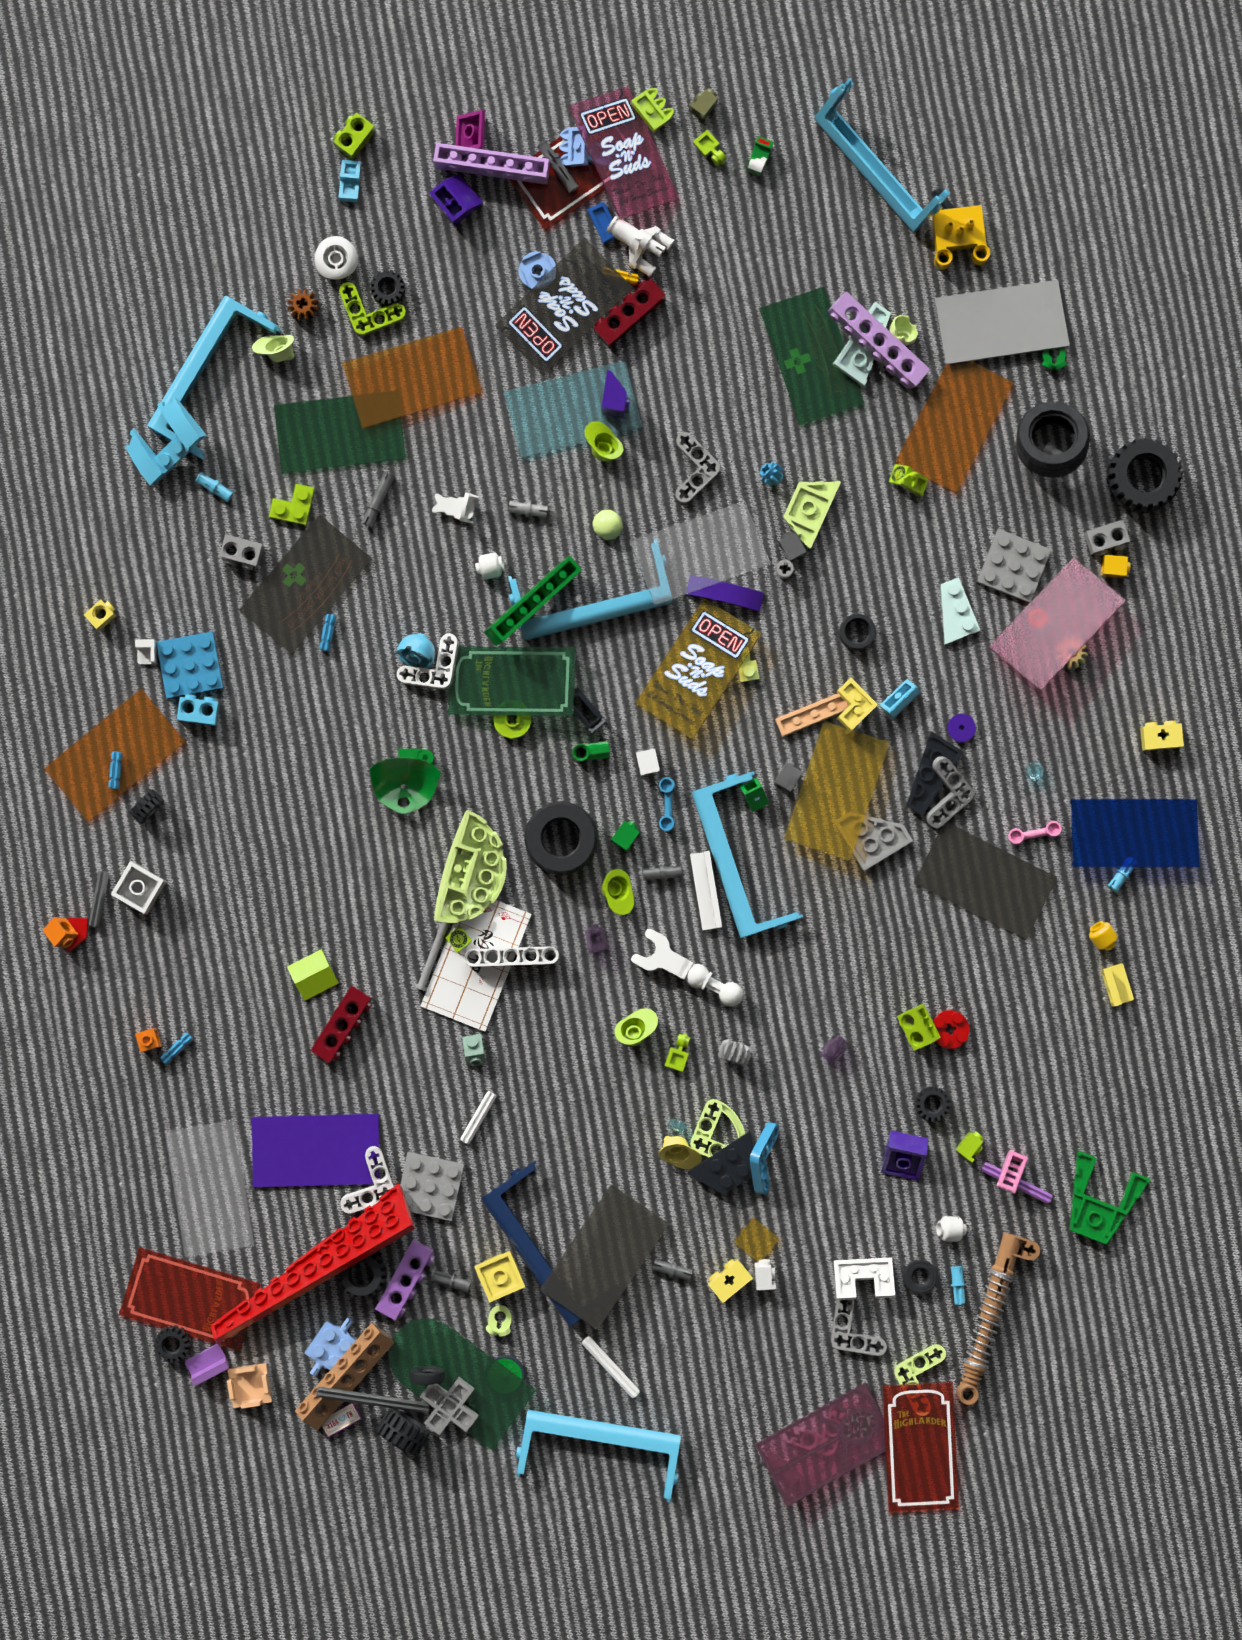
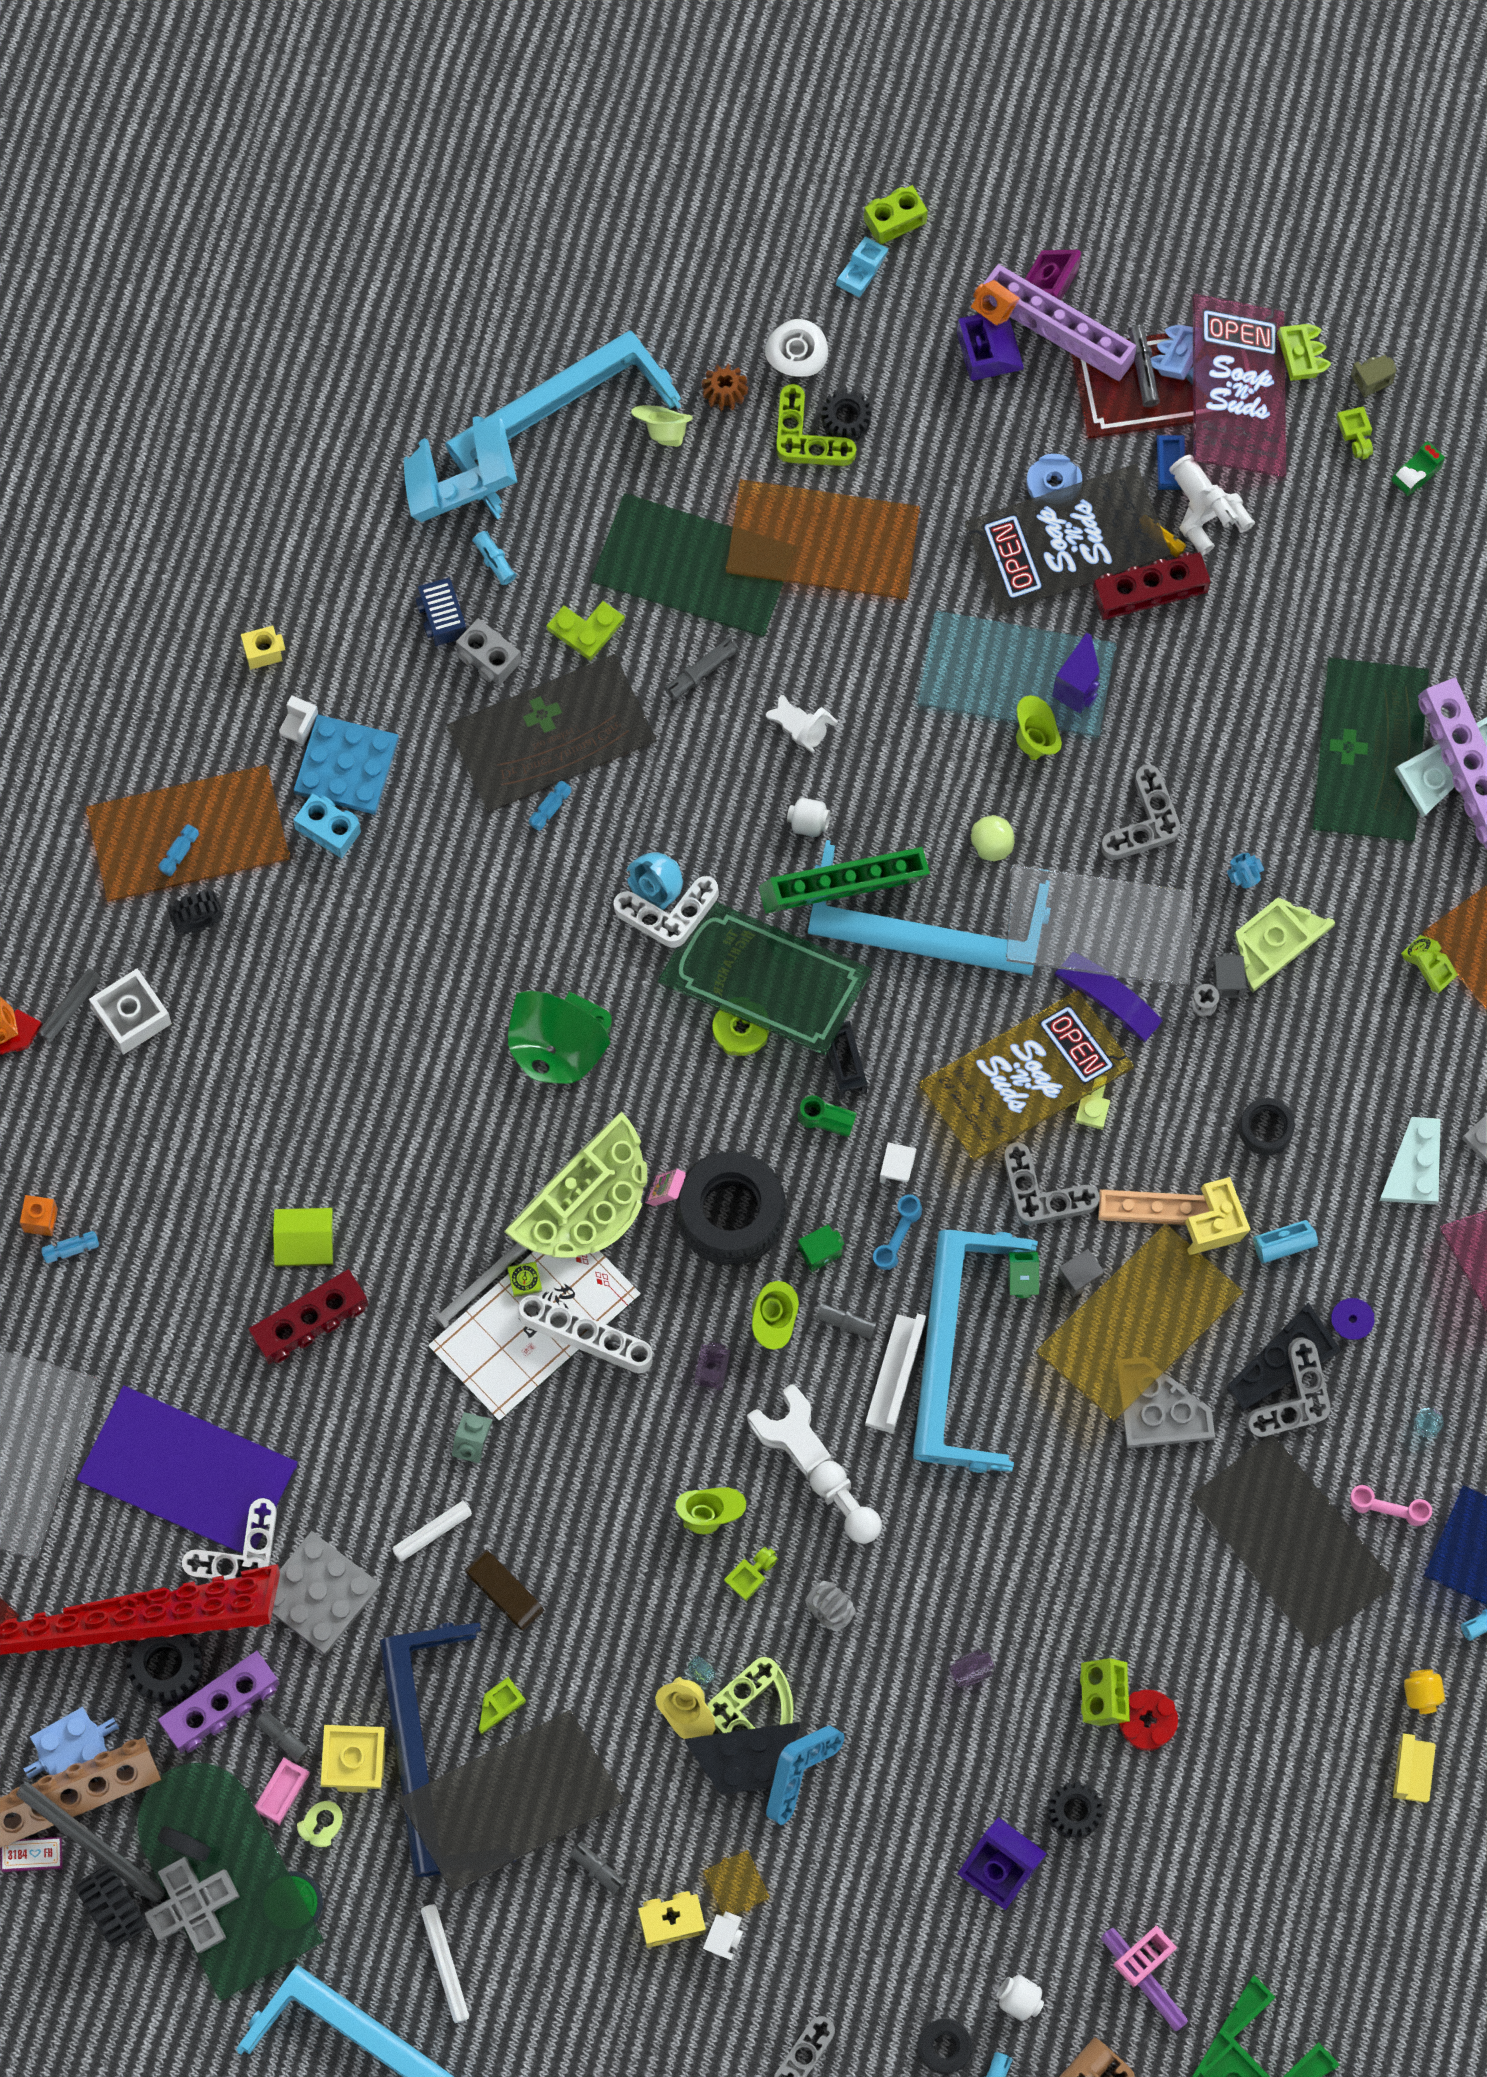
camera: 25 degrees right, 15 degrees down
(199, 537) = (441, 611): none -> dark blue brick
(450, 165) = (1005, 301): none -> orange brick
(466, 1312) = (281, 1791): none -> bright pink tile
(516, 844) = (665, 1187): none -> bright pink tile
(528, 509) = (895, 770): light grey pin -> none
(538, 1133) = (504, 1590): none -> dark brown beam
(567, 1200) = (499, 1703): none -> lime tile
(744, 742) = (1042, 1201): none -> light grey beam
(864, 1269) = (849, 1988): white plate -> none
(970, 1145) = (1102, 1894): lime brick -> none

